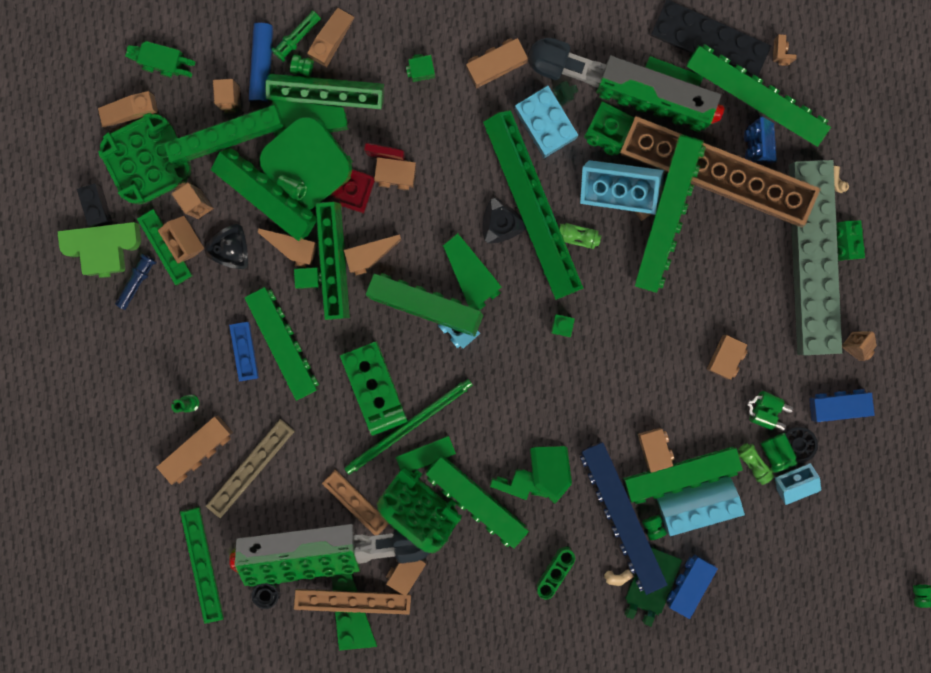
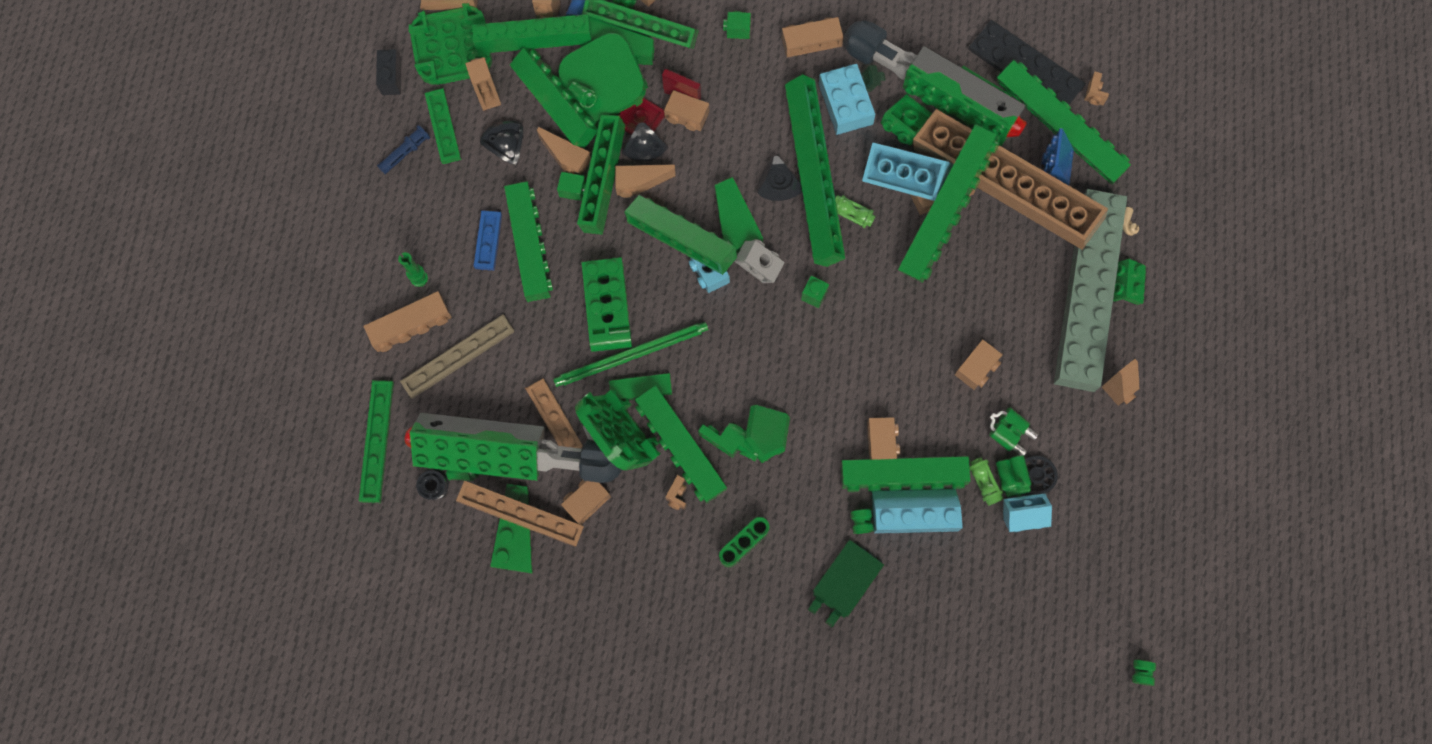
camera: 25 degrees right, 15 degrees down
(100, 247) = (382, 110): bright green brick -> none
(181, 239) = (460, 120): medium nougat brick -> none
(364, 219) = (644, 144): none -> black hat
(485, 541) = (677, 489): none -> medium nougat bracket
(504, 311) = (750, 260): none -> light grey brick
(618, 580) = (808, 568): tan arm -> none
(624, 518) = (831, 502): dark blue brick -> none
(691, 586) = (887, 594): blue brick -> none
(841, 405) = (1090, 444): blue brick -> none

